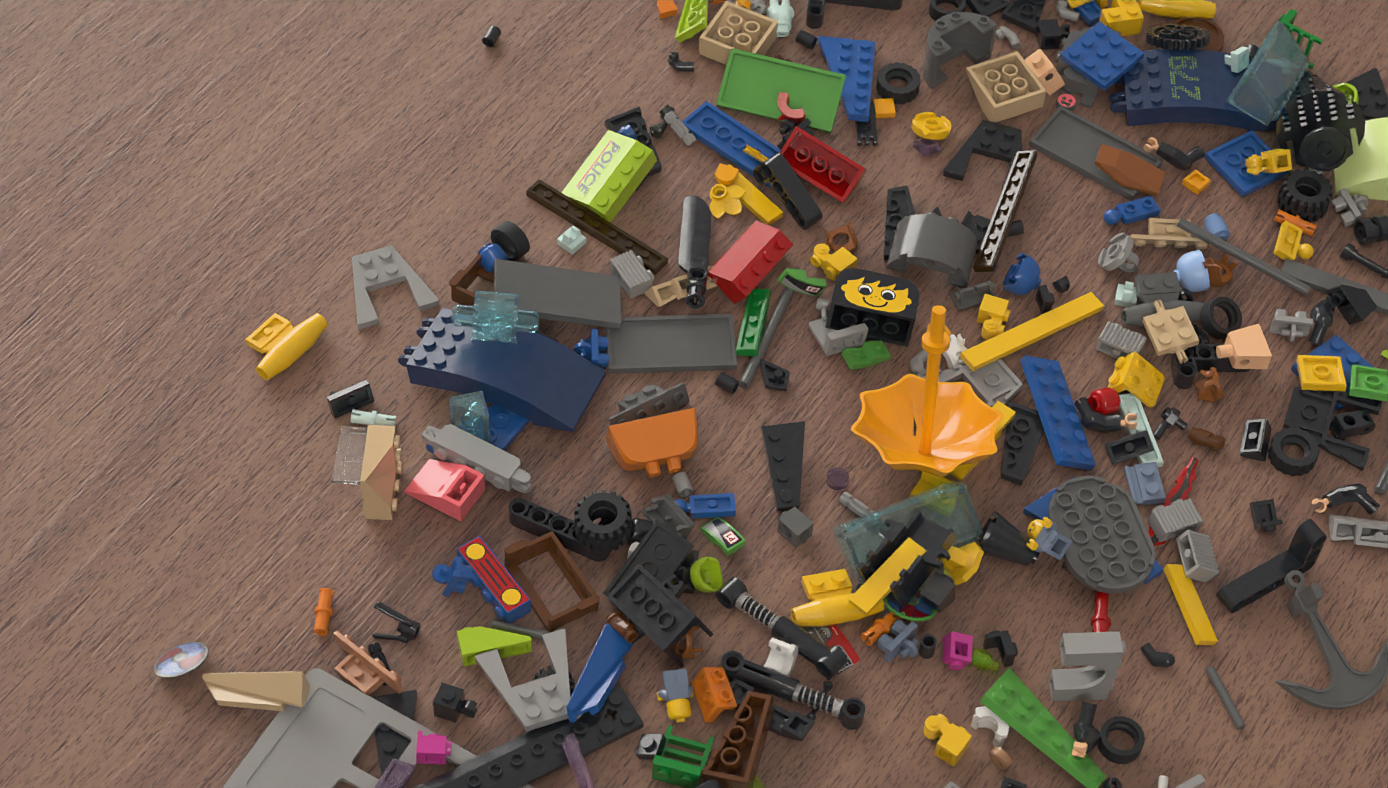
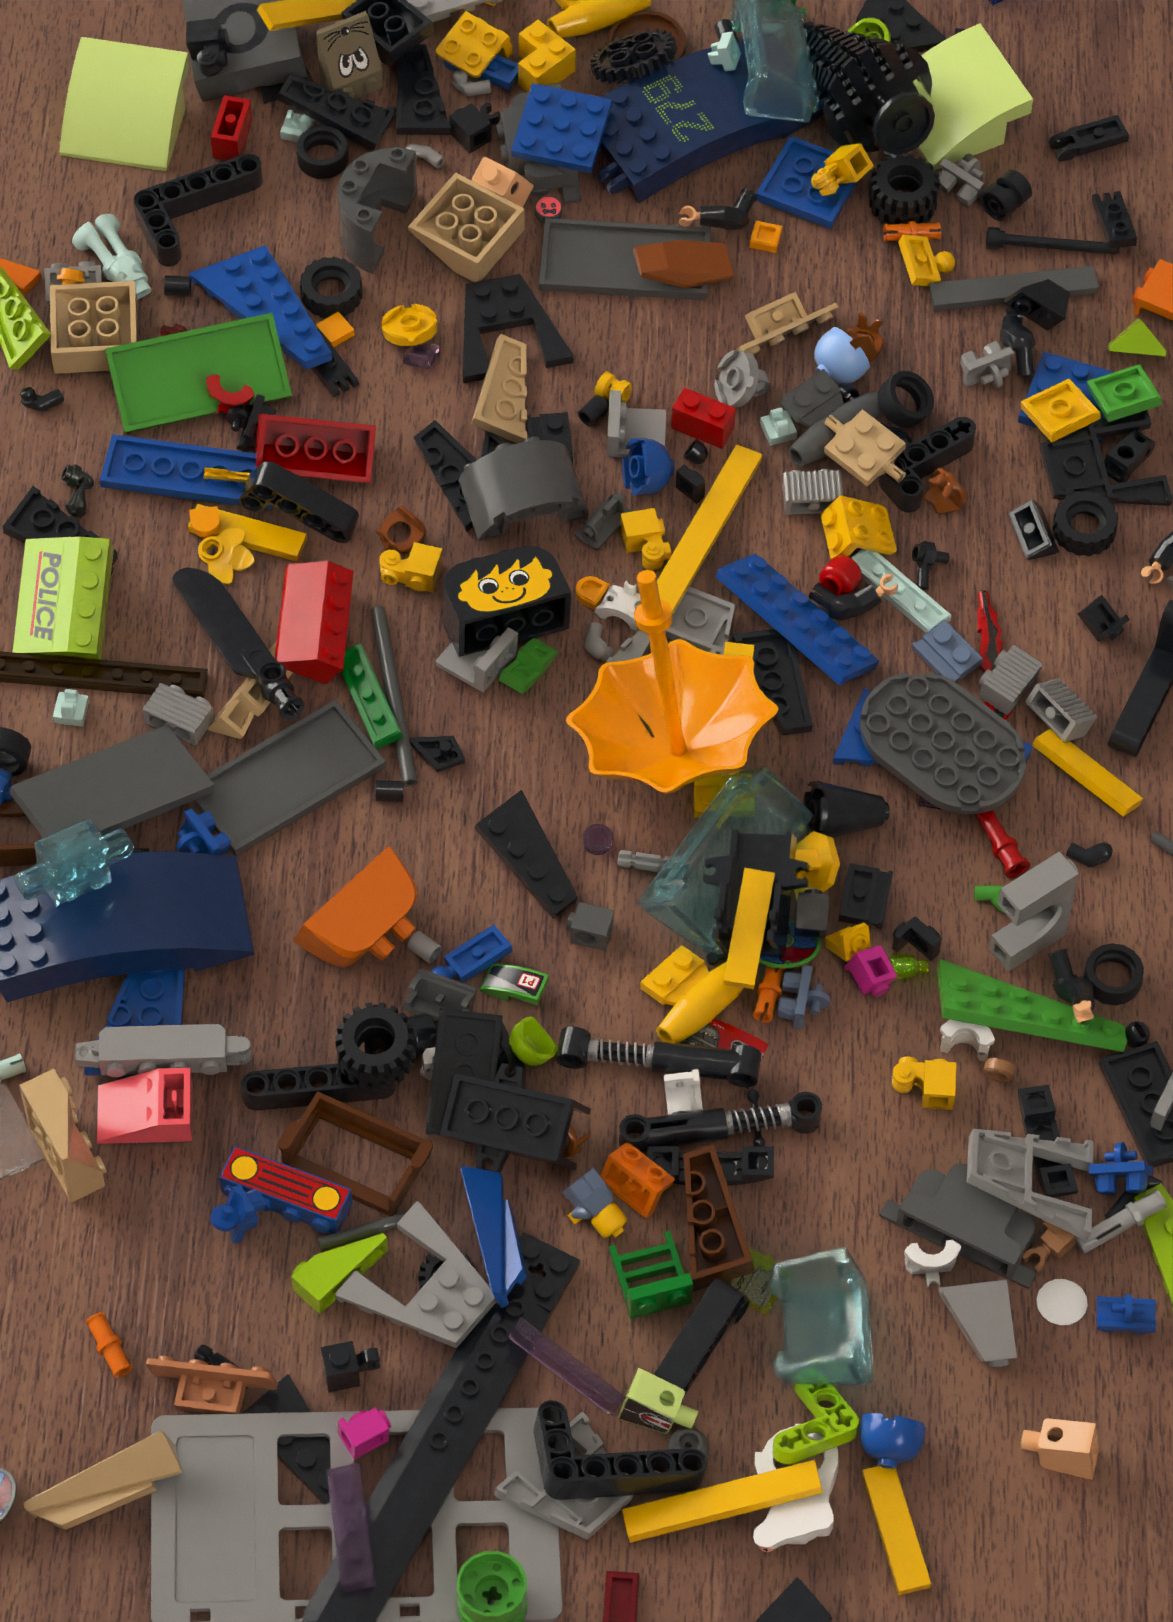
camera: 30 degrees left, 5 degrees up
(407, 628) = (224, 1306): black plant -> none
(471, 414) = (124, 1001): clear light blue slope -> none
(622, 626) = (481, 1160): reddish brown arm -> none
(628, 132) = (49, 529): blue plate -> none
(649, 403) = (314, 872): dark grey bracket -> none
(650, 746) = (606, 1282): black plate -> none
(680, 128) = (104, 488): light grey axle -> none
(797, 281) = (392, 615): slope -> none
(822, 305) = (436, 630): light grey hand -> none
(927, 646) = (835, 984): black hinge -> none
(954, 622) = (849, 941): none -> yellow bracket
(961, 192) = (504, 392): none -> tan wing
(986, 602) = (865, 895): none -> black plate
(1005, 211) = (574, 393): dark brown tile -> none
(1025, 242) = (630, 424): none -> light grey bracket
(1033, 222) = (609, 382): none -> yellow wheel
(1046, 538) = (890, 781): sand blue piece -> none
(1079, 265) = (703, 418): none -> red brick
(1129, 447) = (902, 617): black slope -> none
(1132, 211) = (717, 314): blue plate -> none
(1206, 438) = (981, 559): reddish brown arm -> none
(1216, 225) = (829, 286): medium blue brick -> none
(1243, 256) = (882, 307): dark grey piece -> none
(1246, 348) = (964, 425): light nougat torso -> none

